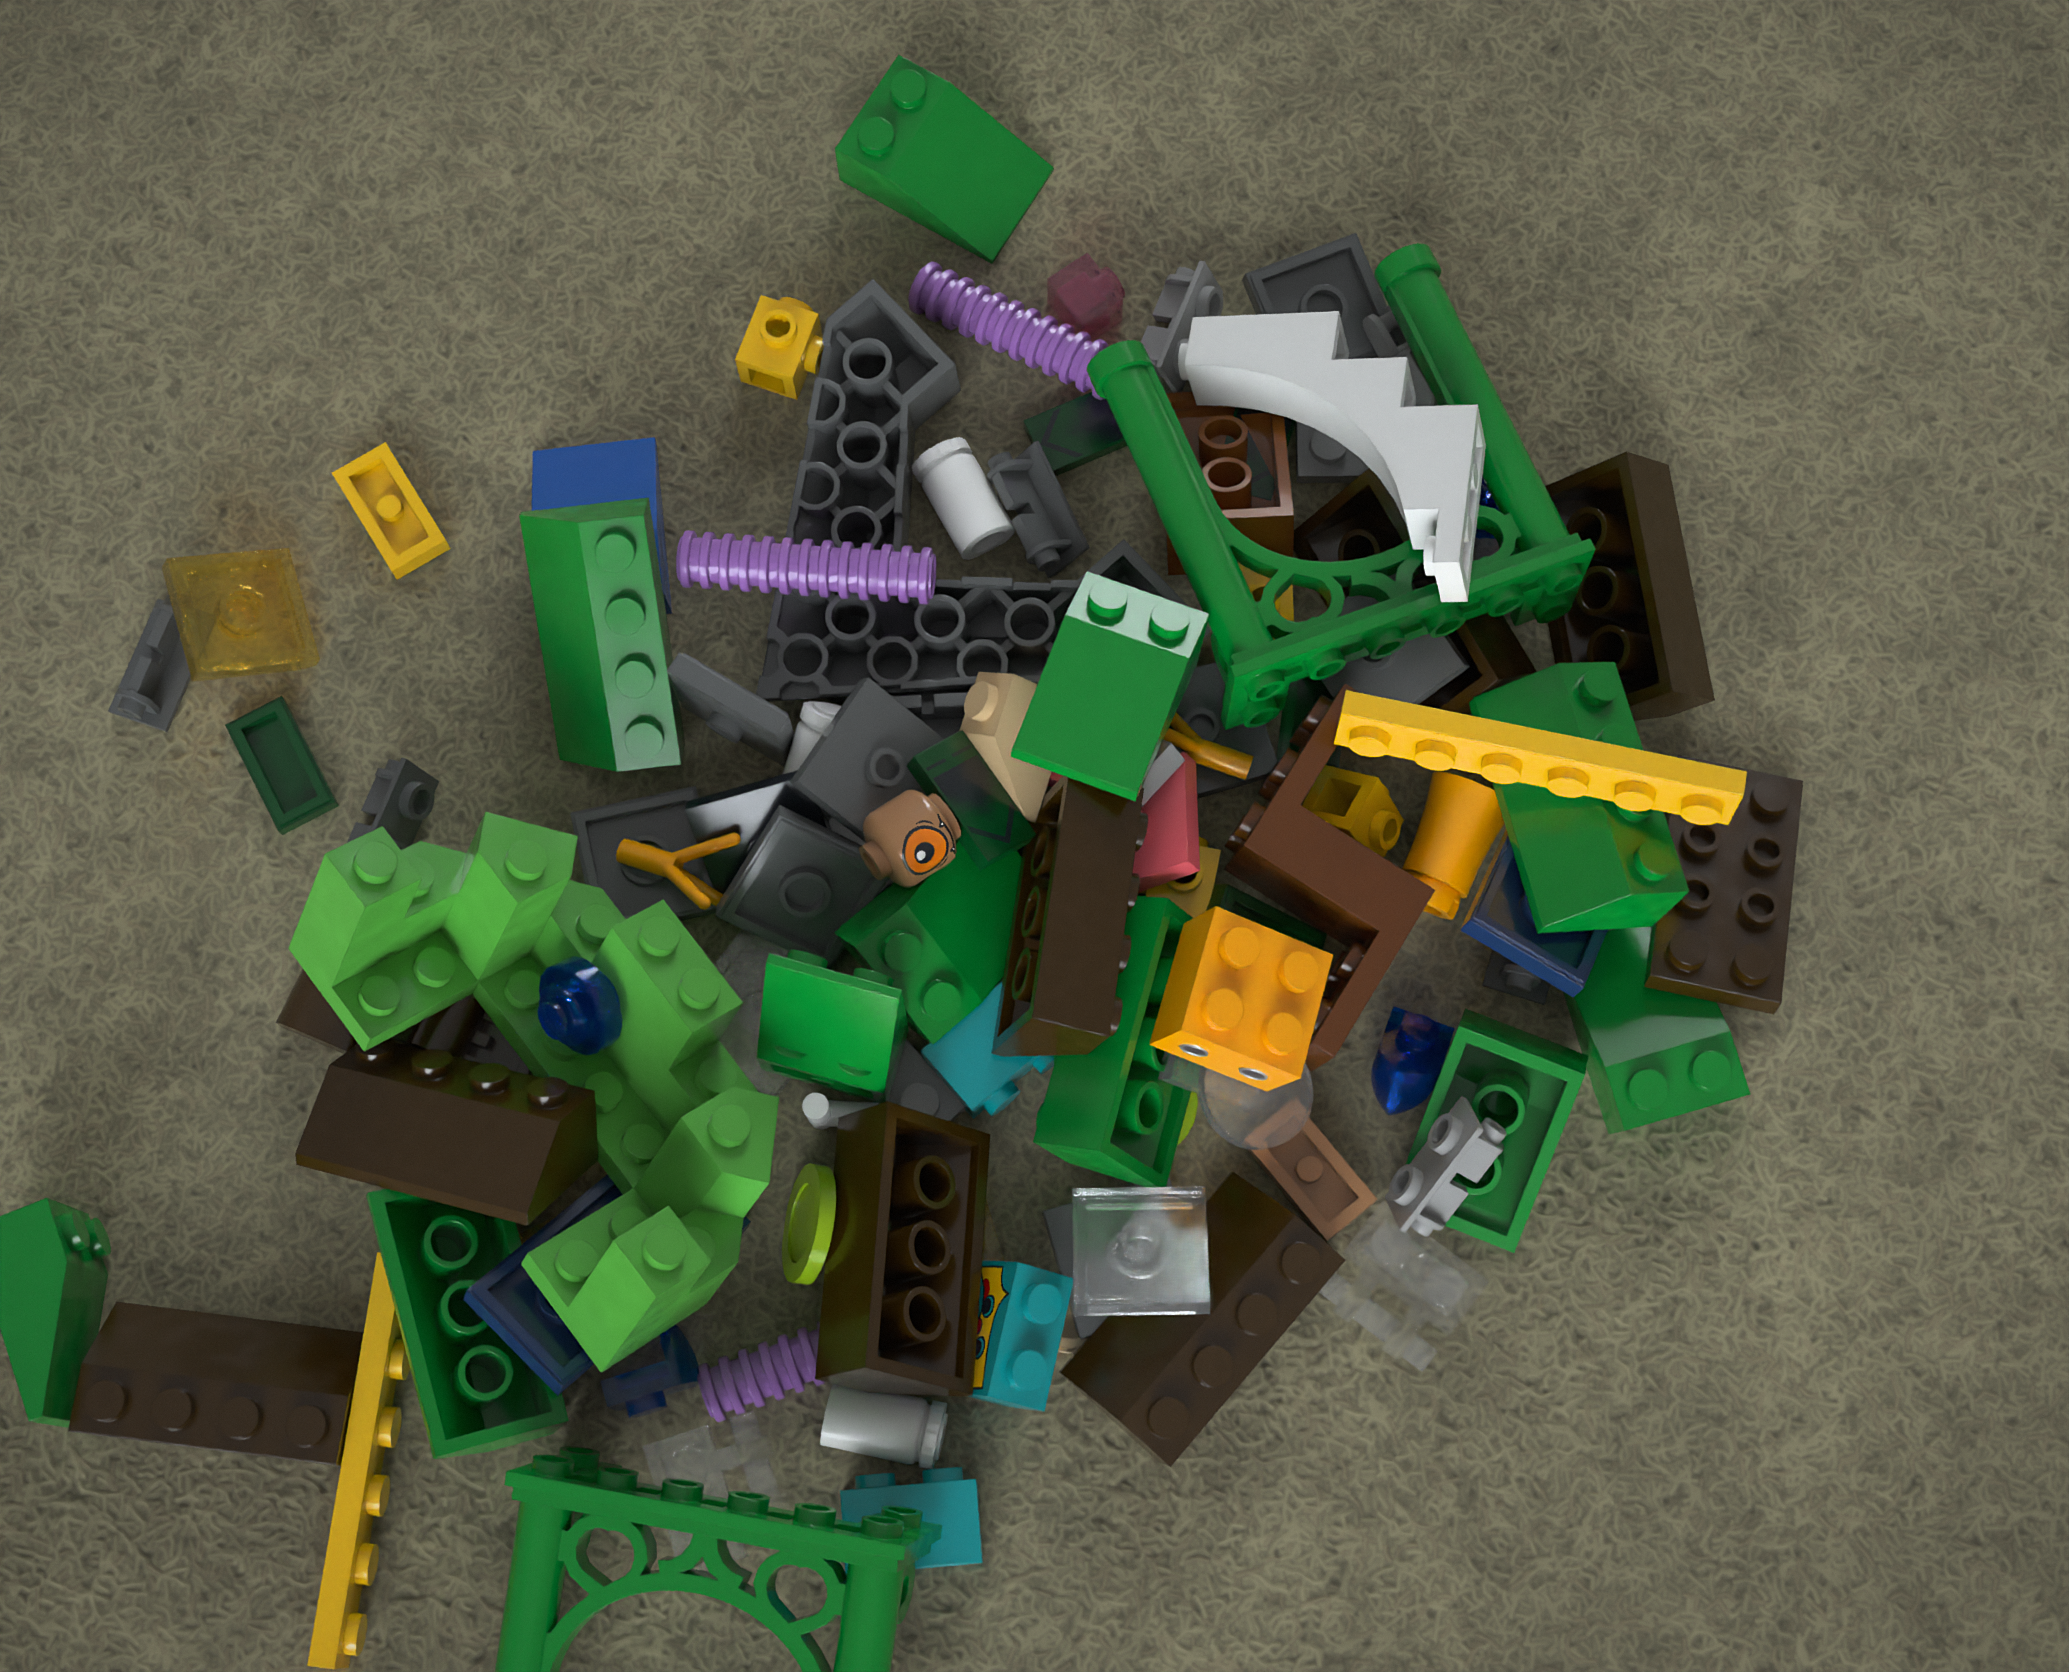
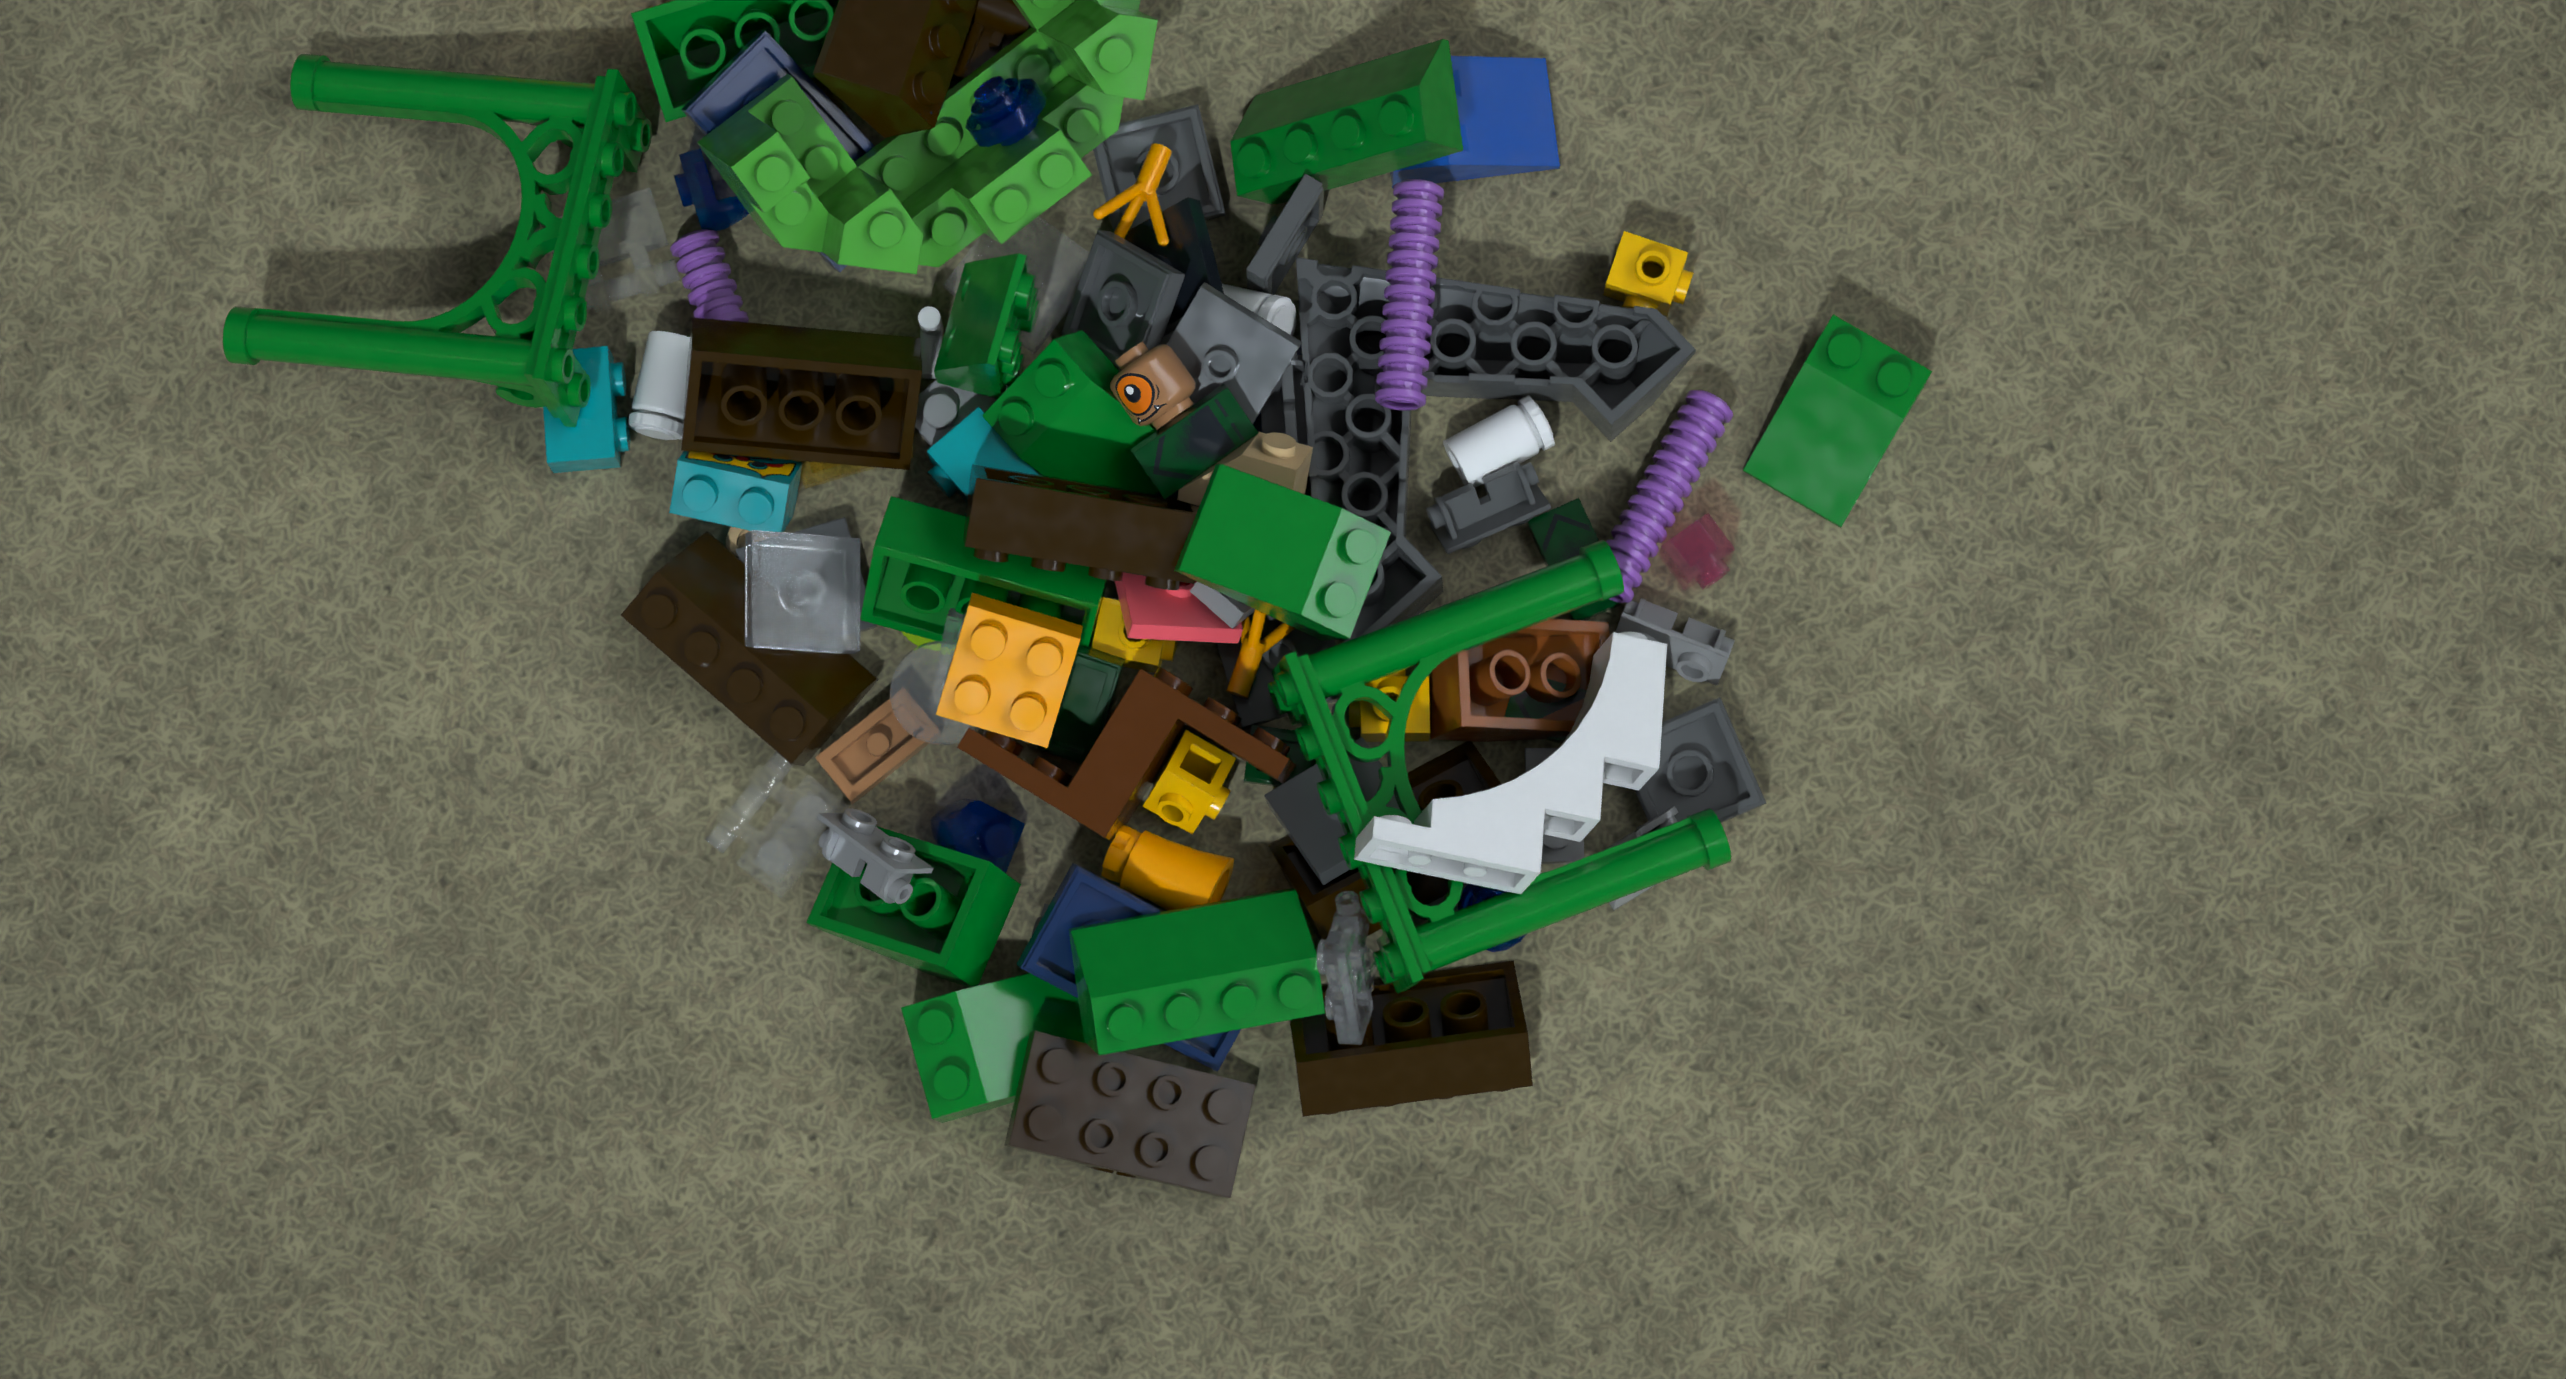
camera: 90 degrees right, 5 degrees up
(808, 1224) = (831, 316): lime piece -> none
(1539, 758) = (1201, 941): yellow plate -> none
(1562, 635) = (1348, 969): none -> clear plate

